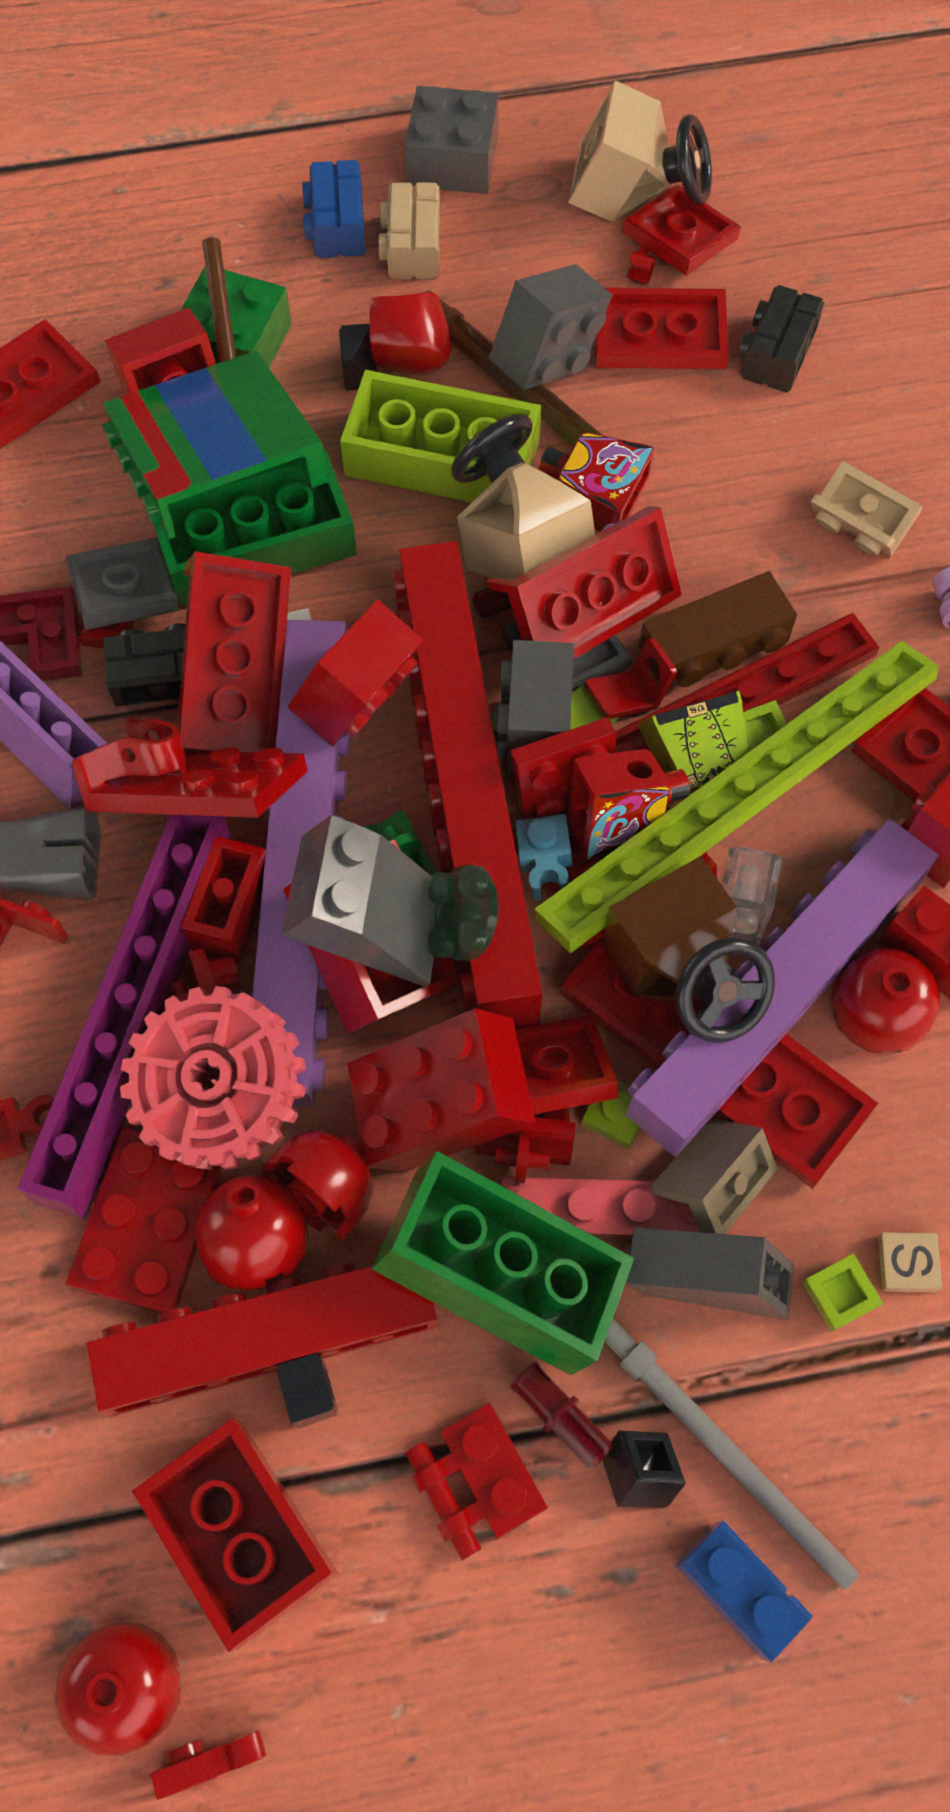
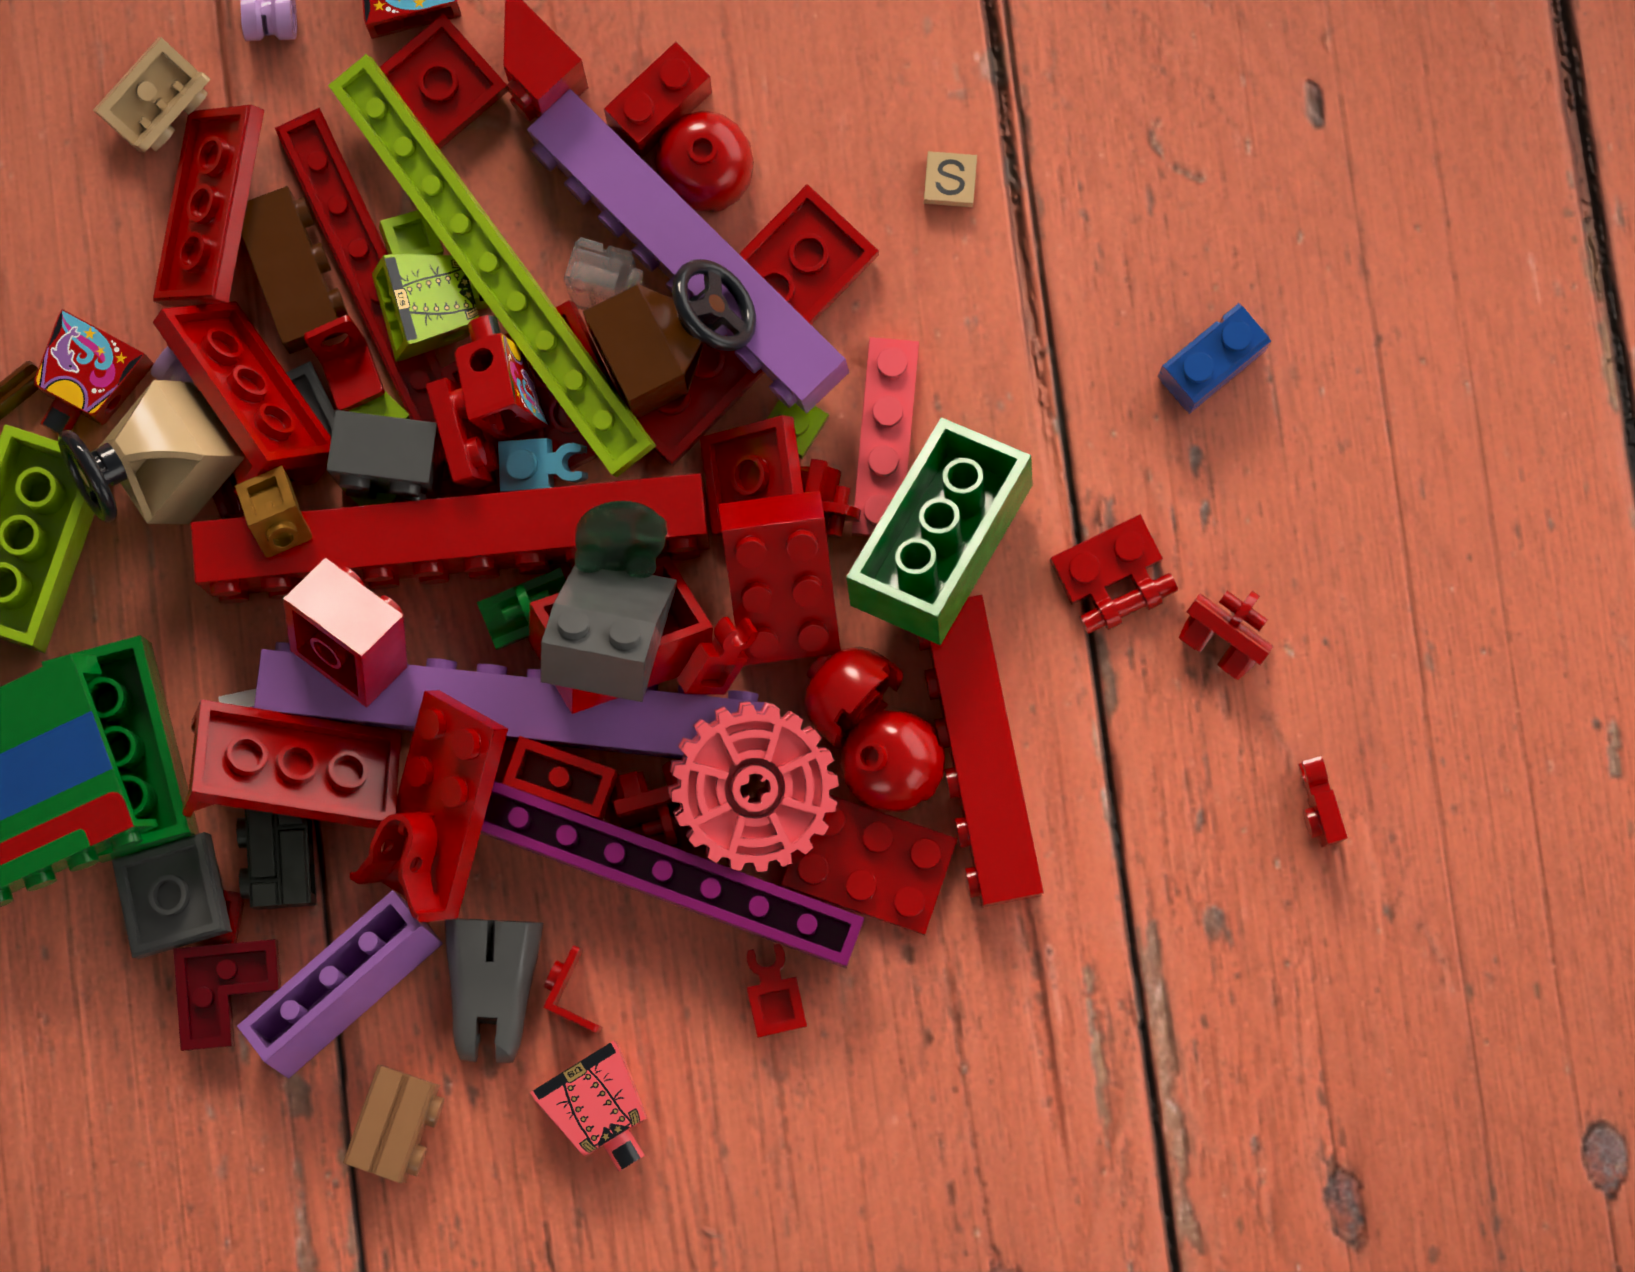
camera: 85 degrees left, 15 degrees up
(118, 1689) = (1261, 880): red cylinder -> none
(234, 1534) = (1148, 774): red brick -> none
(307, 1390) = (1034, 712): black slope -> none
(343, 1032) = (718, 663): none -> red plate
(421, 1632) = (1245, 645): none -> red hips
(468, 595) = (273, 512): none -> pearl gold bracket
(561, 1415) = (1064, 496): dark red axle -> none
(640, 1363) = (1025, 424): light grey bar -> none
(643, 1470) = (1112, 431): black slope -> none
(712, 1270) = (951, 354): dark grey slope -> none
(718, 1173) = (866, 336): dark tan panel -> none
(769, 556) = (208, 206): none -> red tile
(842, 1292) = (975, 241): lime plate -> none

